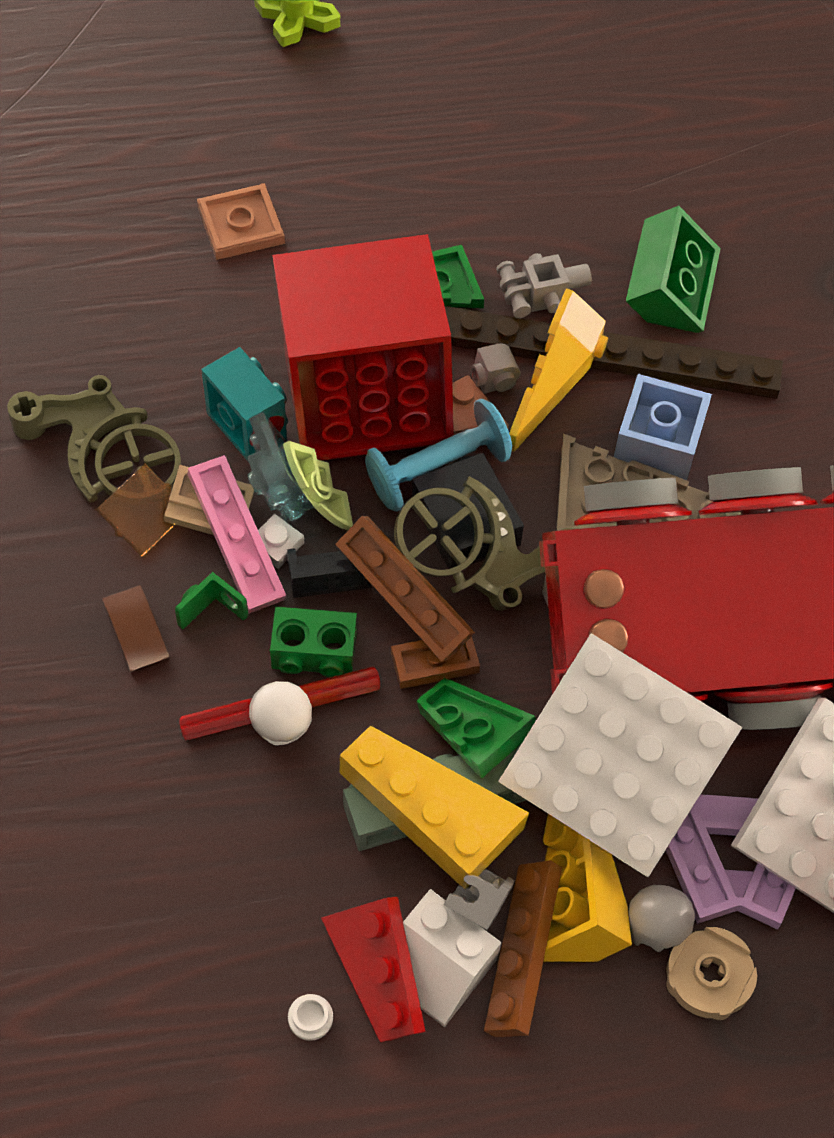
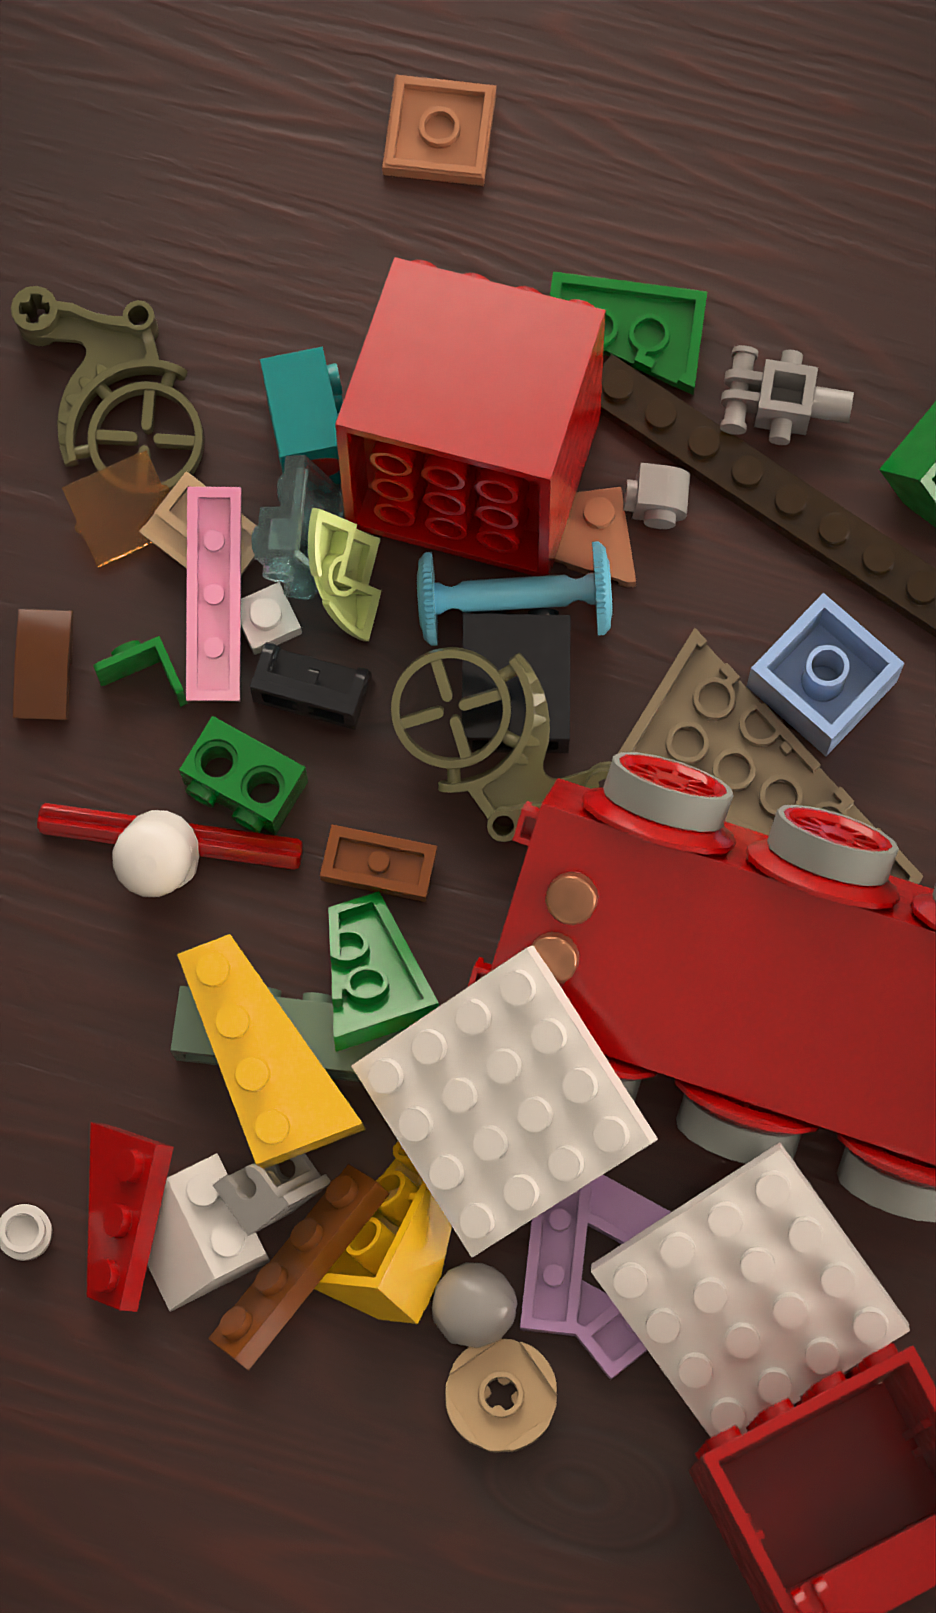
camera: 30 degrees right, 15 degrees up
(405, 588) = (374, 762): dark orange plate -> none
(570, 348) = (755, 518): yellow wedge -> none

